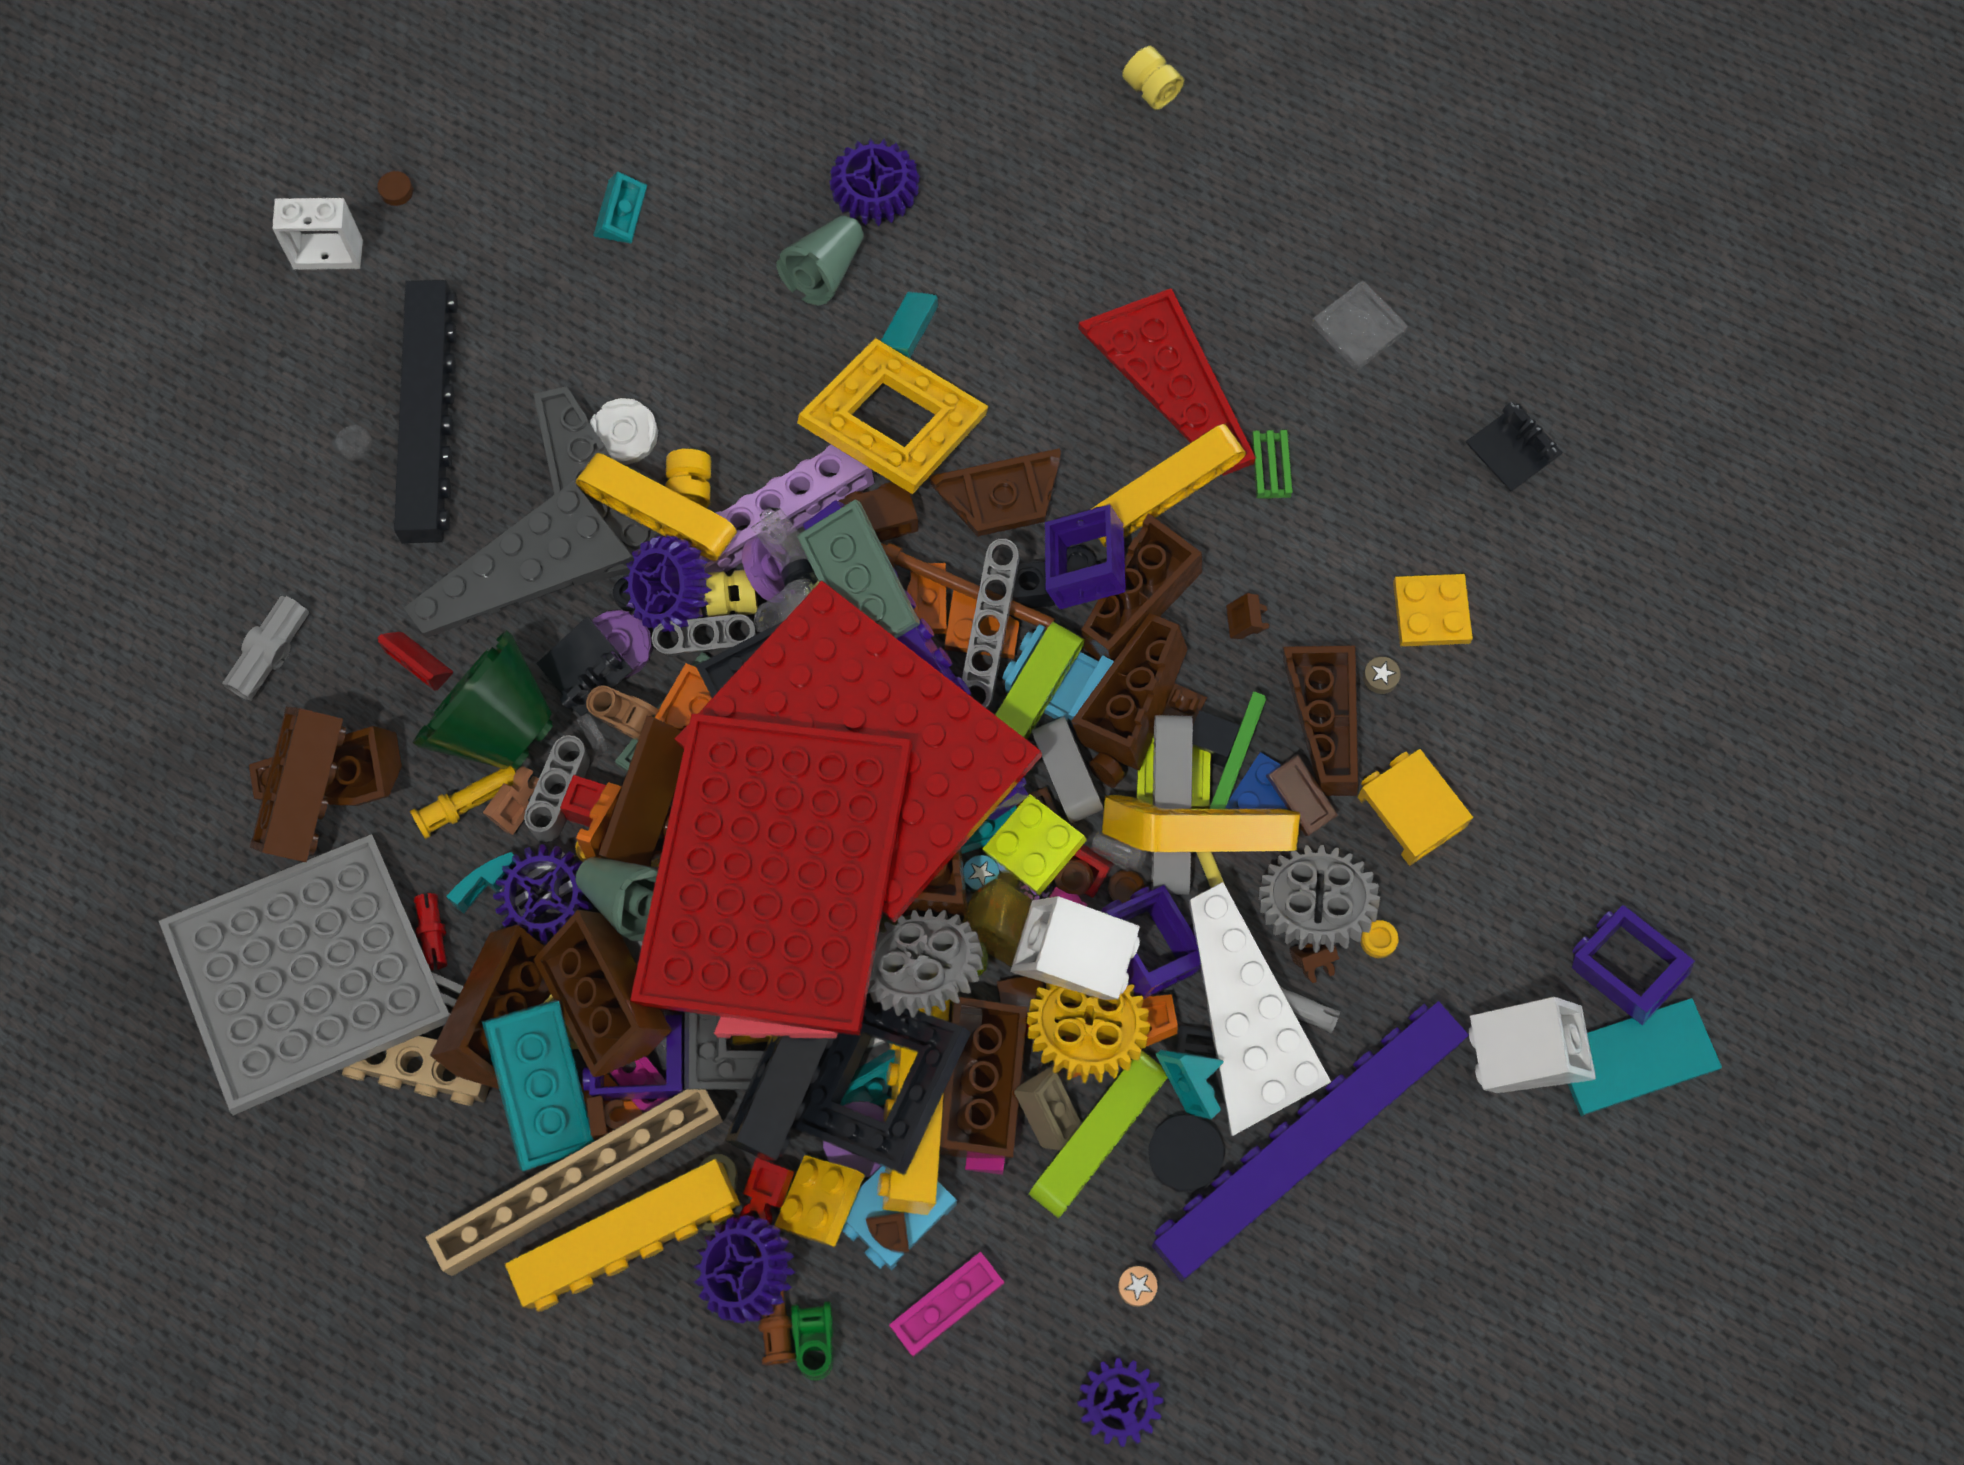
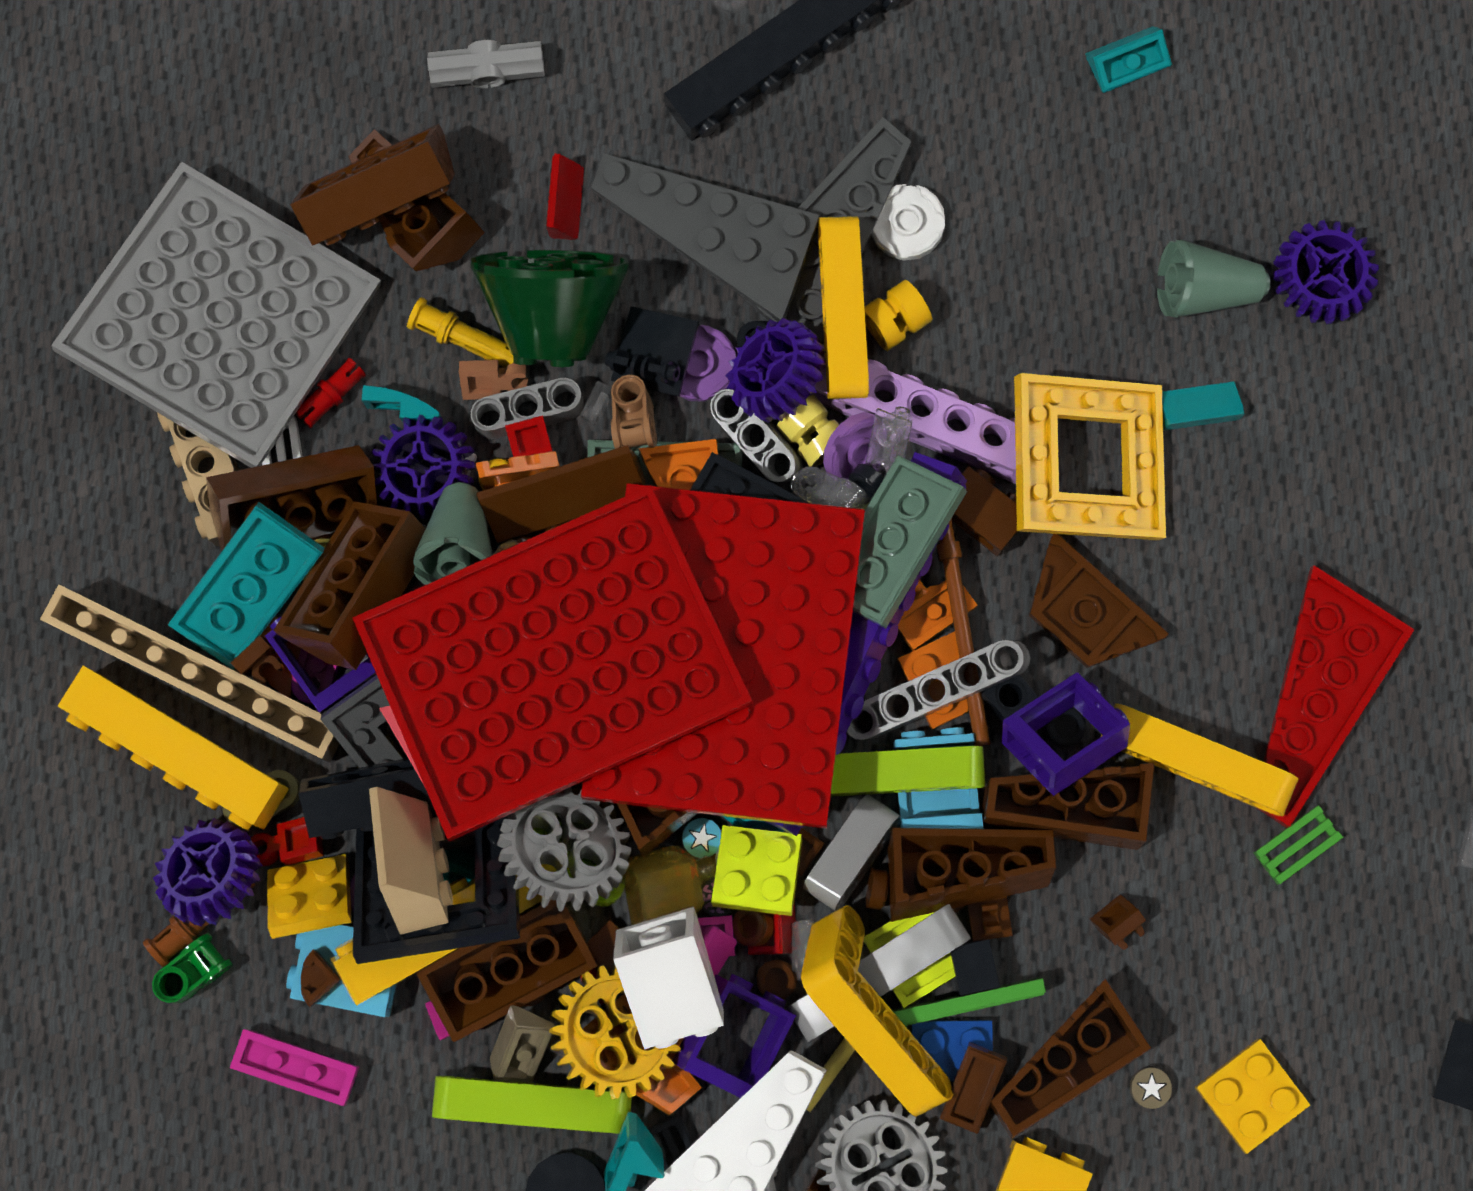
camera: 60 degrees right, 10 degrees up
(853, 1081) = (410, 860): none -> tan slope

